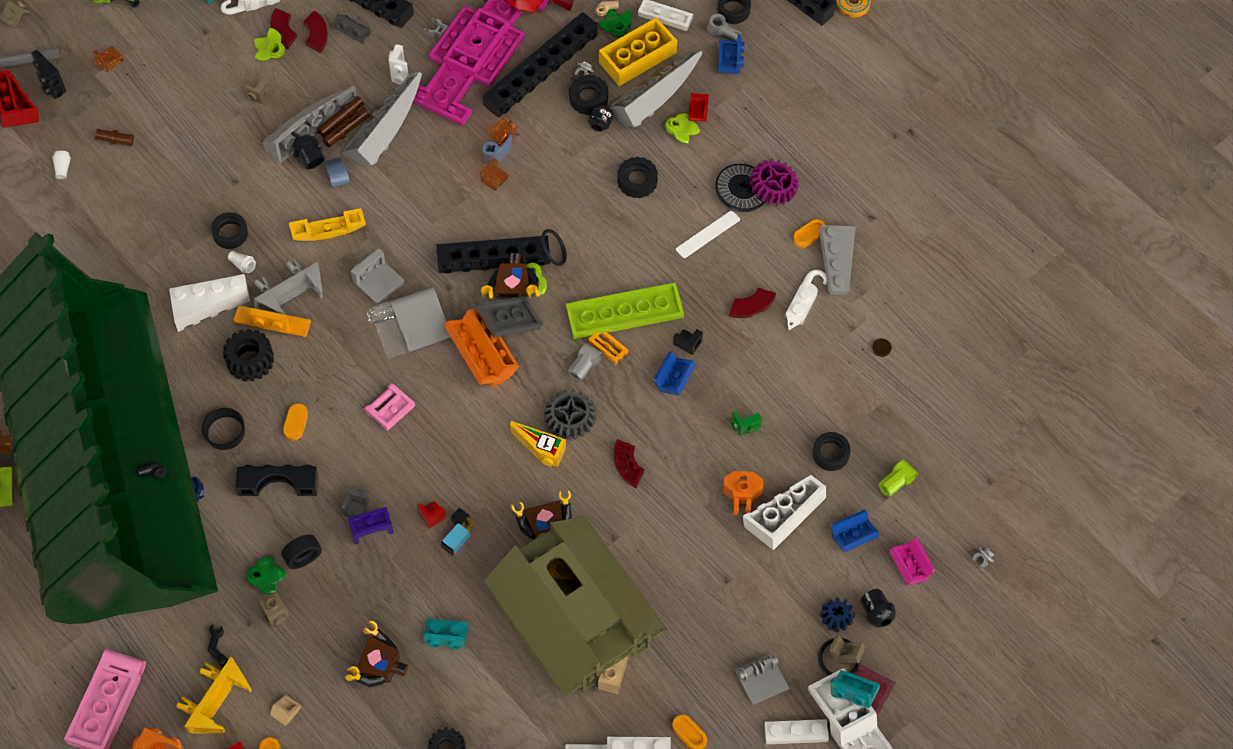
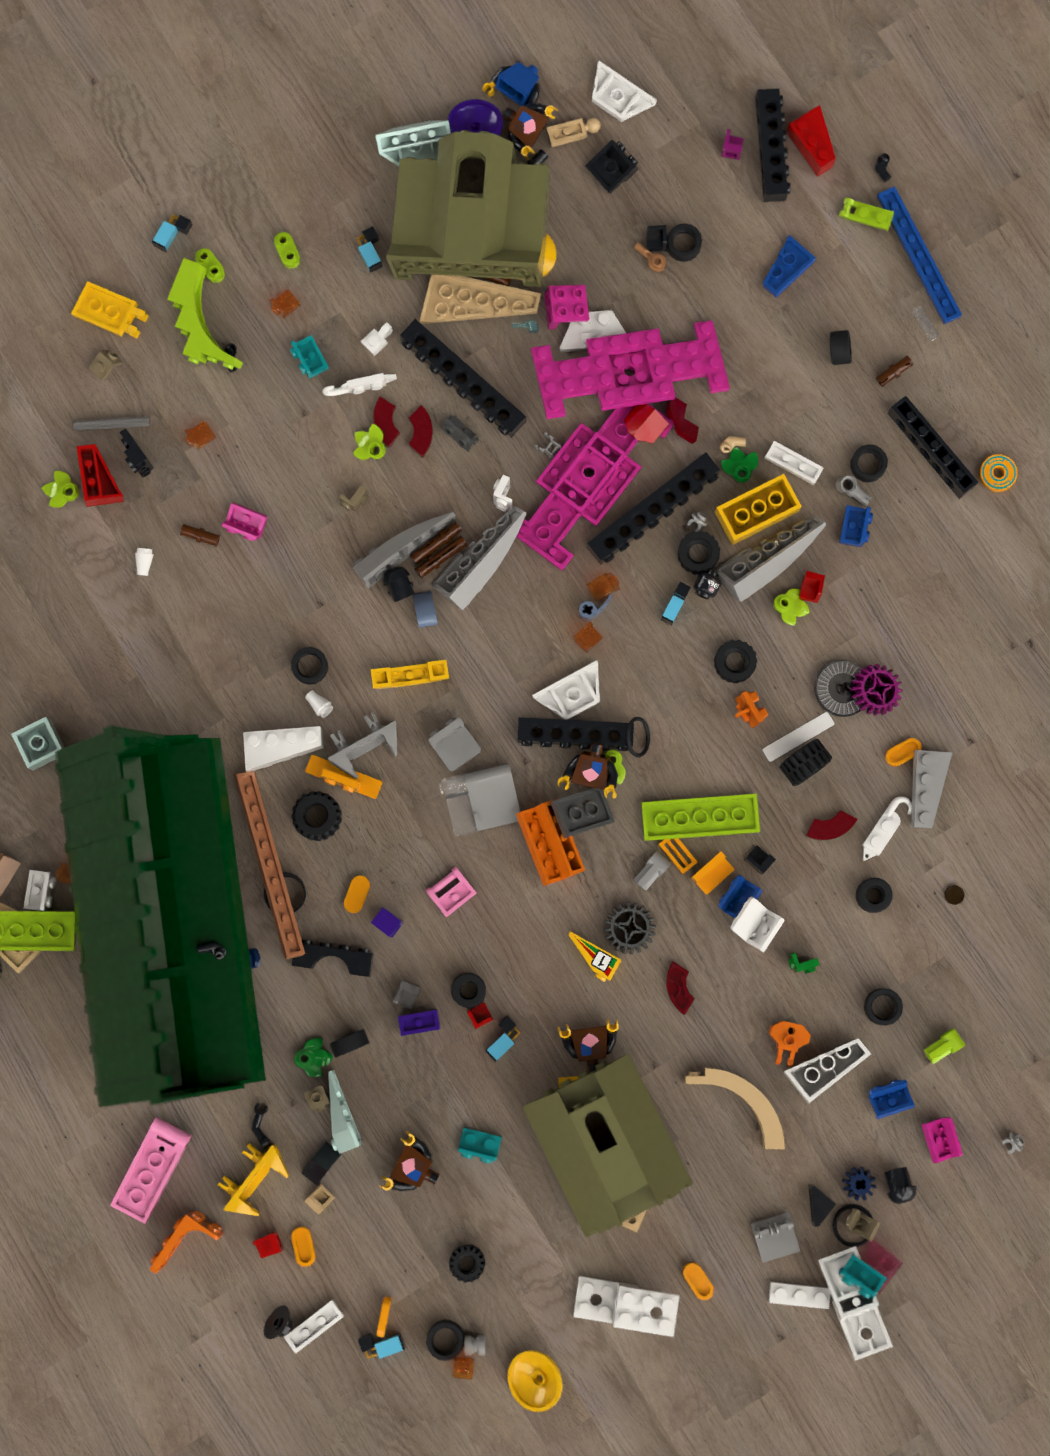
camera: 10 degrees right, 20 degrees up
(157, 119) = (245, 522): none -> dark pink bracket
(205, 402) = (269, 865): none -> nougat plate
(283, 674) = (321, 1163): none -> black slope
(303, 631) = (343, 1126): none -> light aqua wedge
(328, 436) = (387, 922): none -> dark purple panel
(416, 479) = (480, 990): none -> black tyre
(486, 222) = (573, 693): none -> white wing
(574, 136) = (675, 603): none -> piece
(643, 357) = (713, 873): none -> light orange panel
(656, 214) = (748, 710): none -> orange hips
(693, 393) = (756, 924): none -> white bracket
(712, 547) = (765, 1113): none -> tan arch
(717, 245) = (805, 762): none -> black tyre
(801, 639) = (819, 1205): none -> black slope
(804, 344) = (882, 886): none -> black tyre

